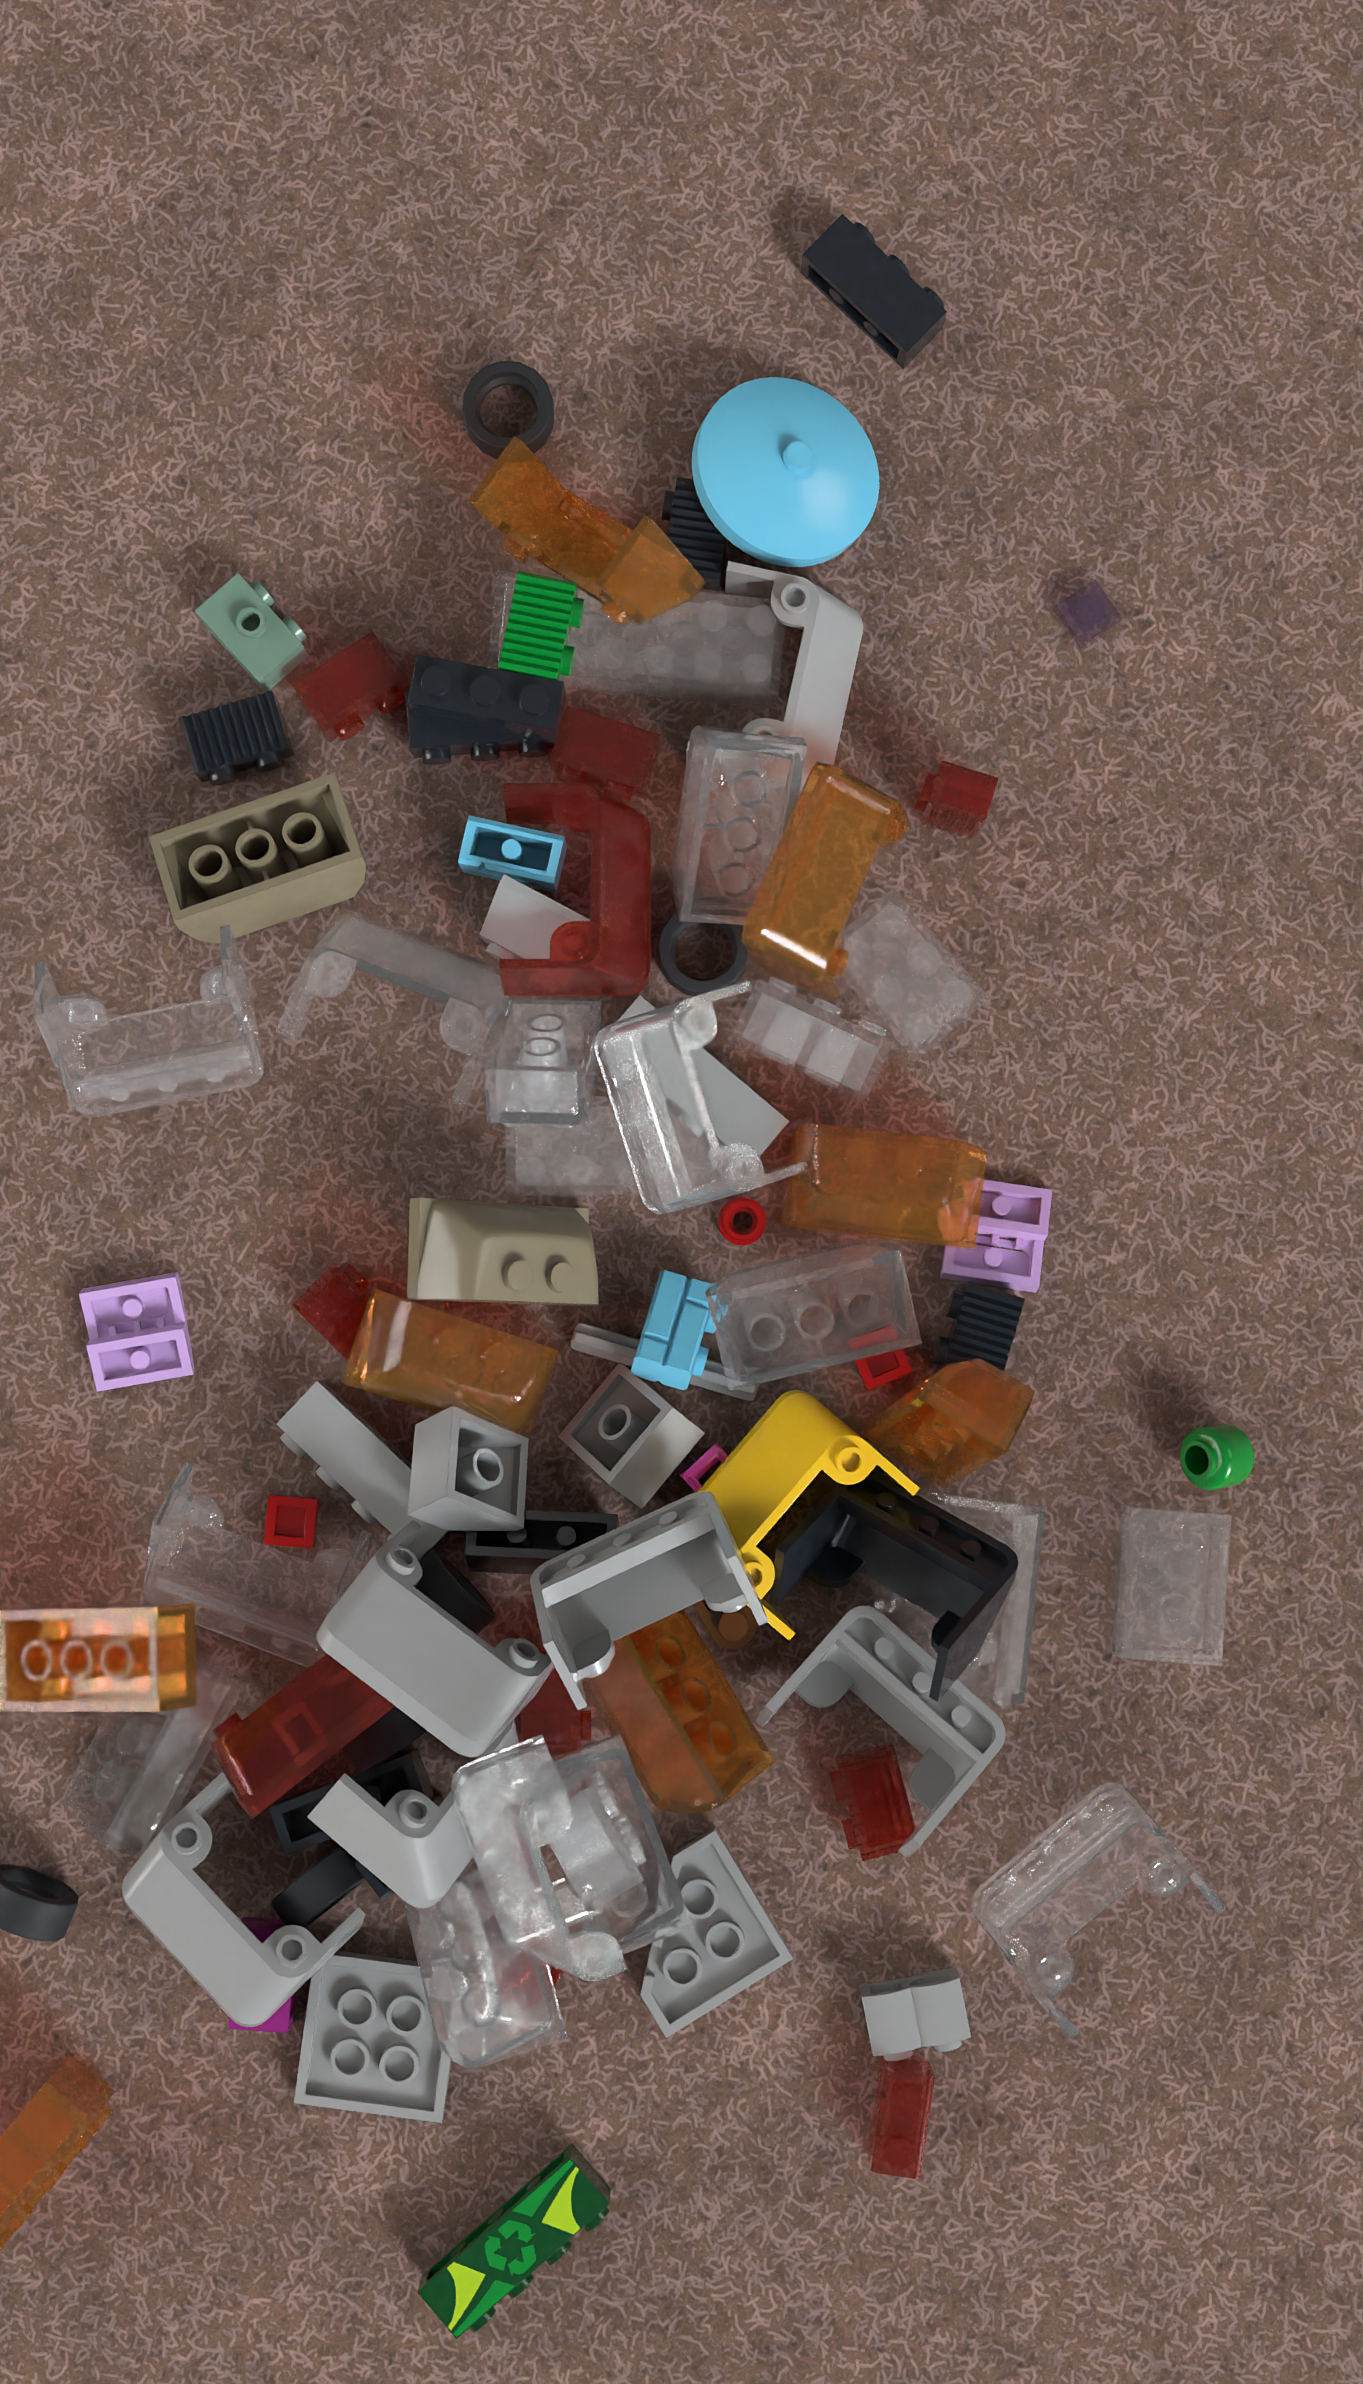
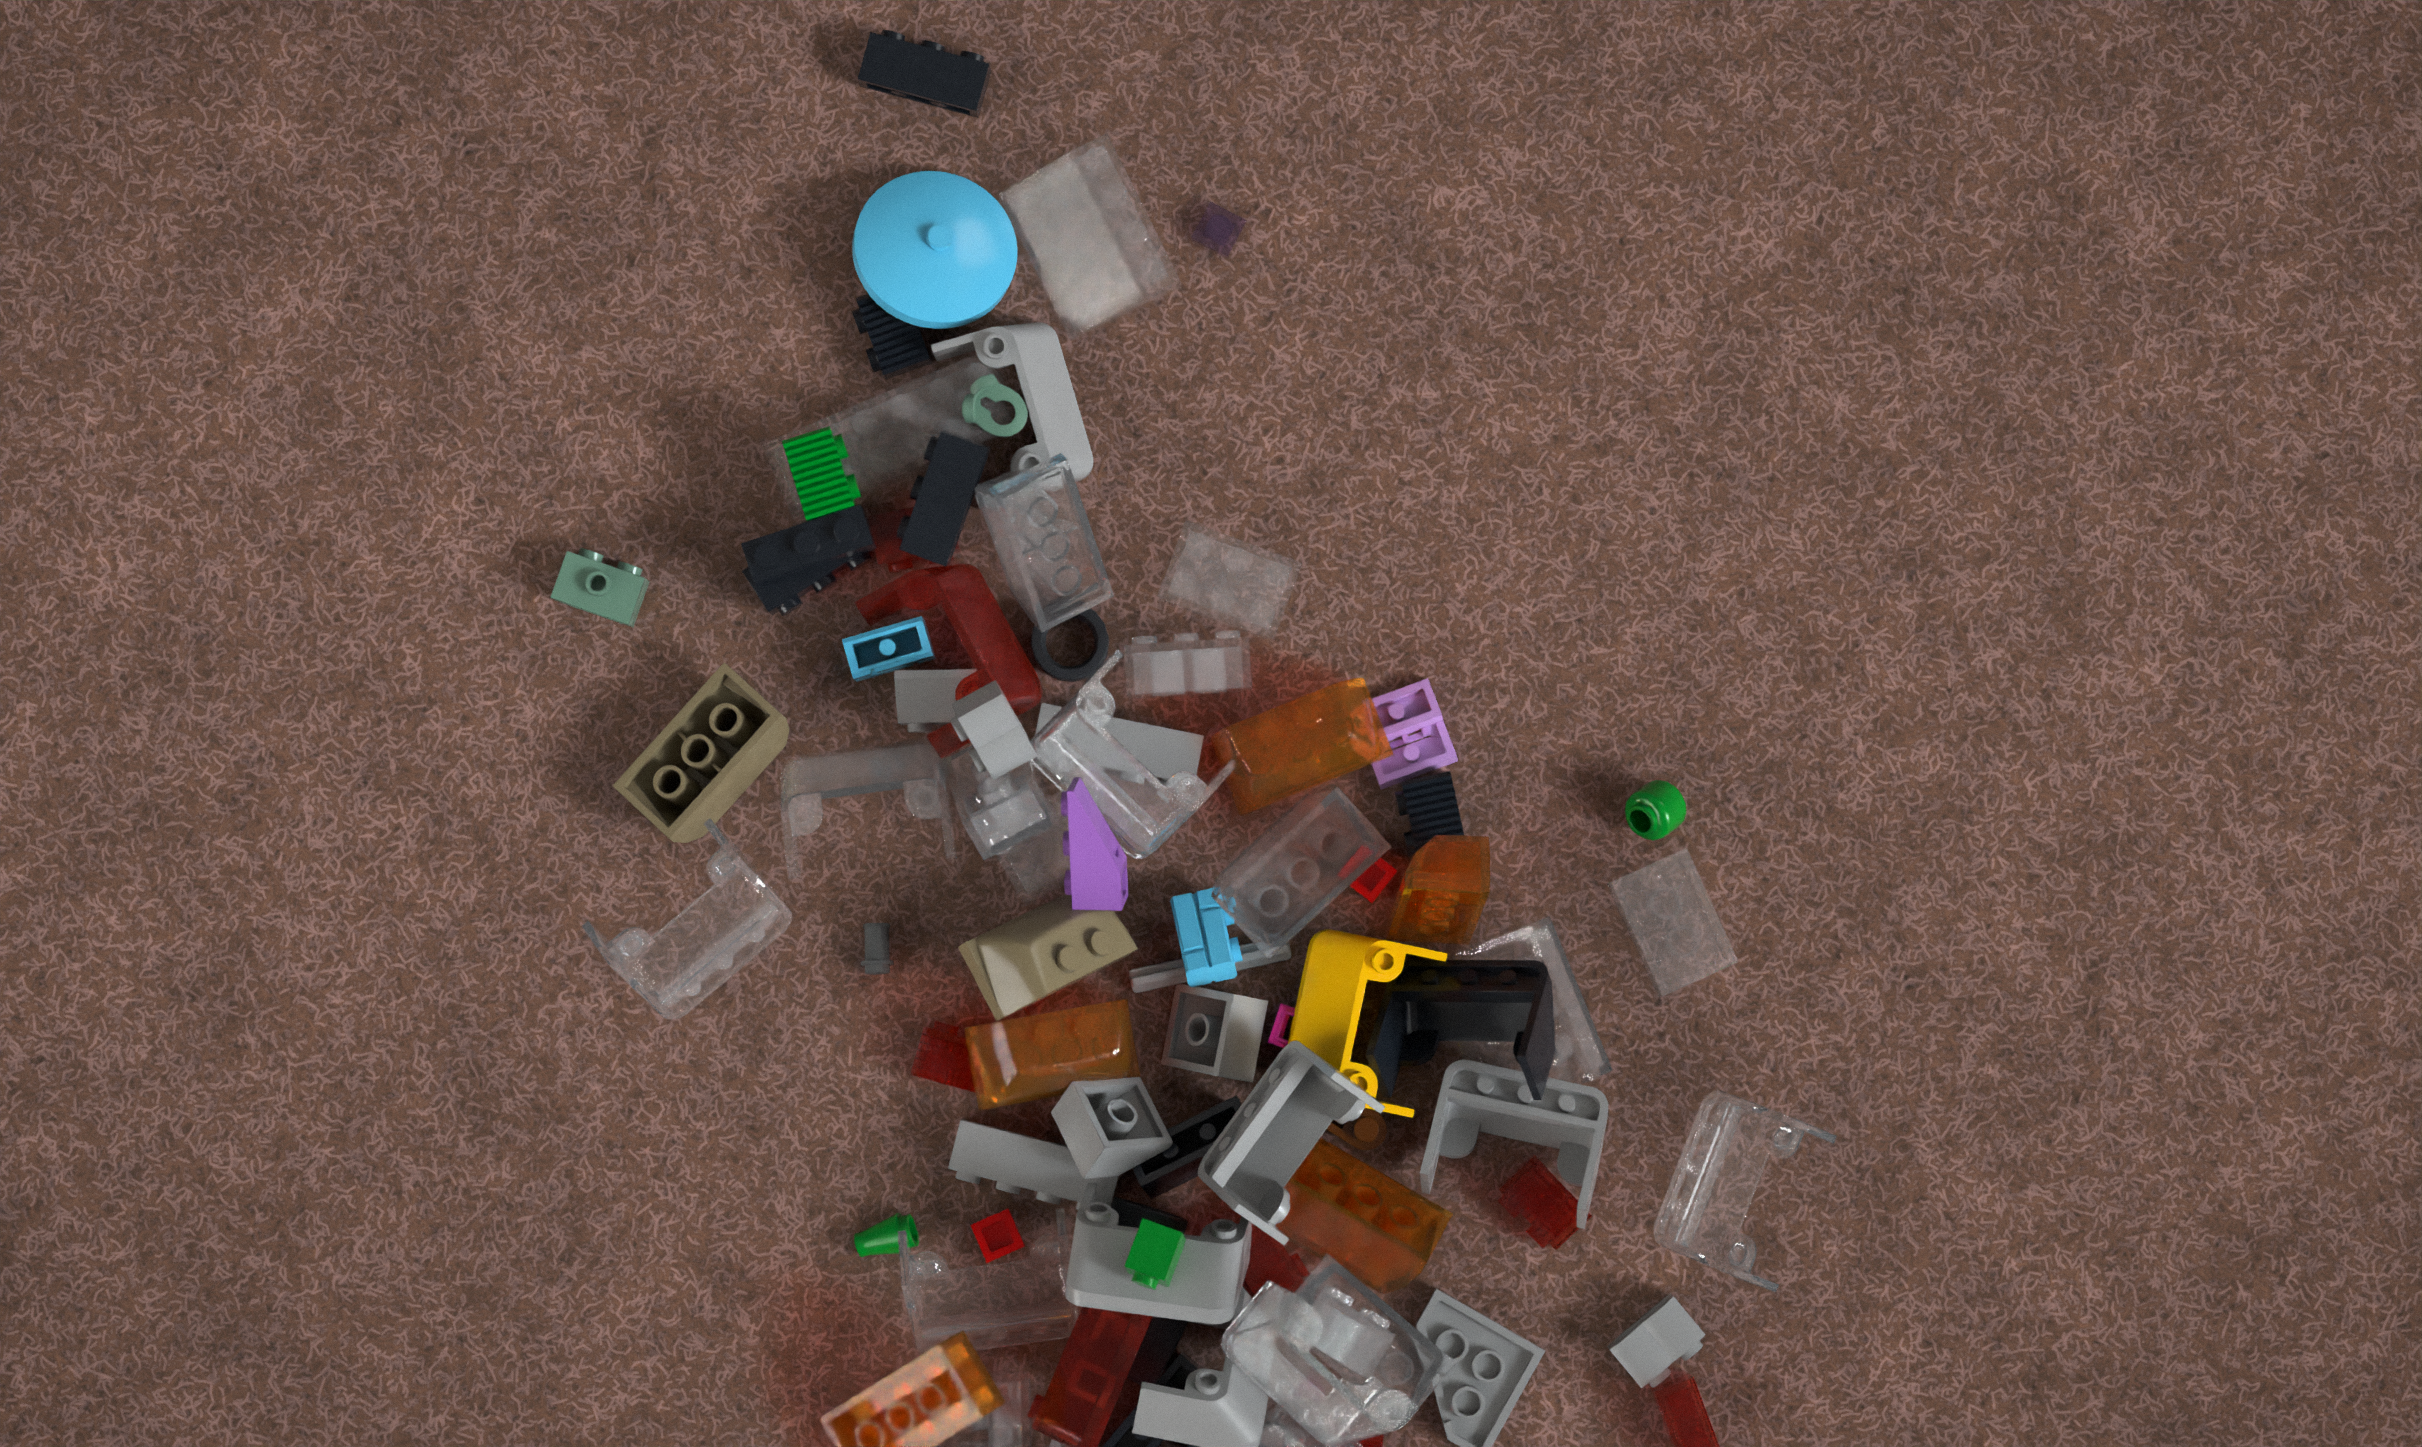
camera: 25 degrees left, 0 degrees up
(137, 1331) = (804, 1159): lavender slope -> none
(170, 1455) = (884, 1236): none -> green cone
(237, 738) = (633, 674): black brick -> none
(331, 1156) = (877, 949): none -> dark grey pin
(352, 688) = (698, 589): clear red brick -> none
(432, 1643) = (1154, 1254): none -> green brick
(502, 374) = (677, 292): black tyre -> none
(571, 990) = (993, 731): none -> light grey brick
(606, 1187) = (1096, 859): none -> medium lavender slope
(623, 569) = (816, 391): clear orange windscreen -> none
(654, 723) = (942, 497): none -> black brick
(753, 1209) = (1200, 818): red plate -> none
(764, 637) = (989, 387): none -> sand green piece
(818, 876) = (1127, 544): clear orange windscreen -> none
(952, 548) = (1089, 237): none -> clear slope
(956, 799) = (1196, 428): clear red brick -> none

